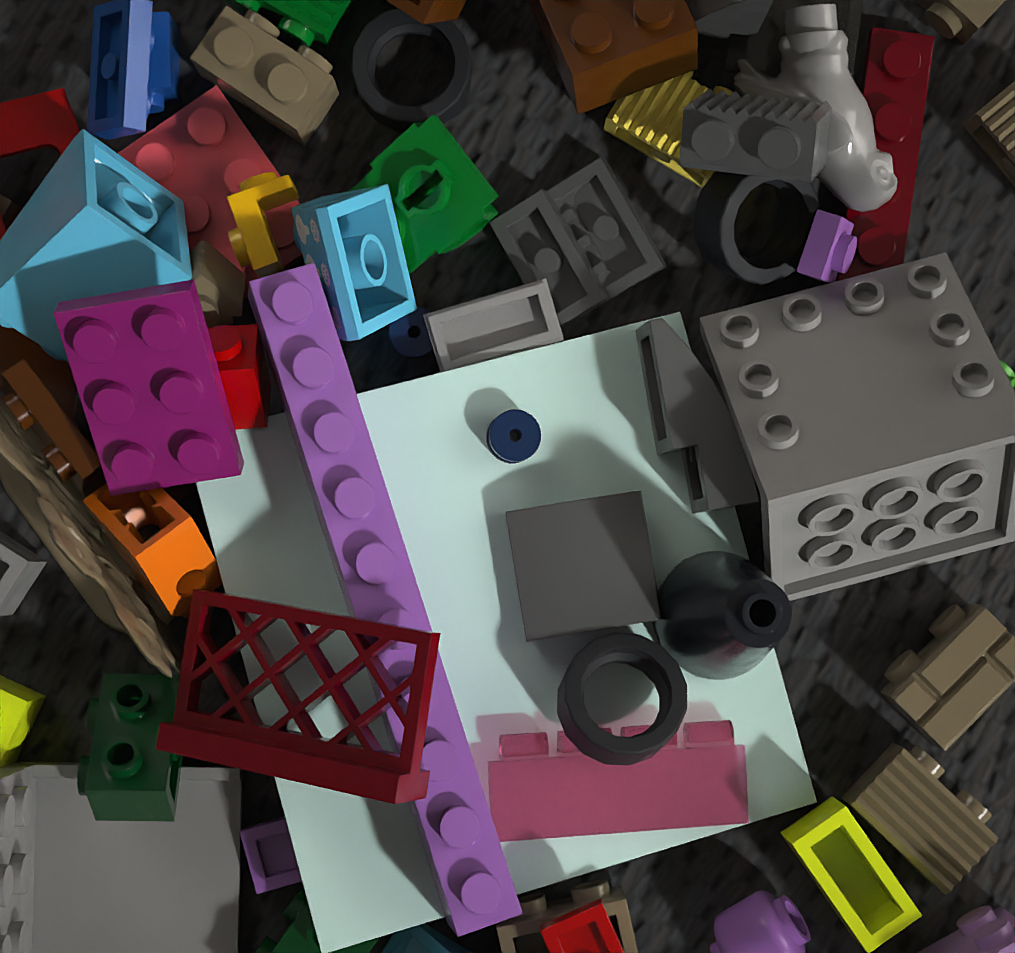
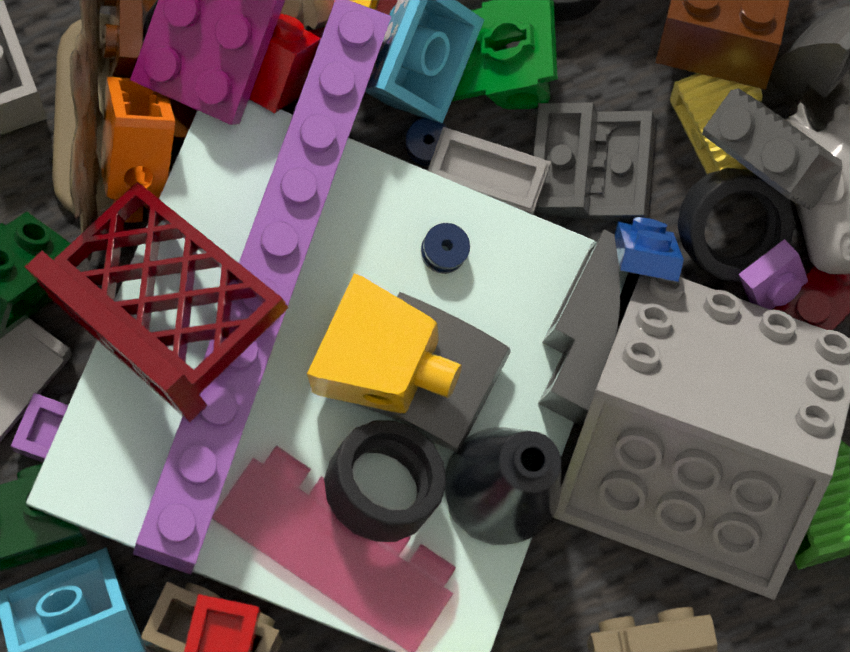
camera: 35 degrees right, 15 degrees down
(537, 591) = (380, 352): none -> yellow torso
(697, 305) = (648, 249): none -> blue plate

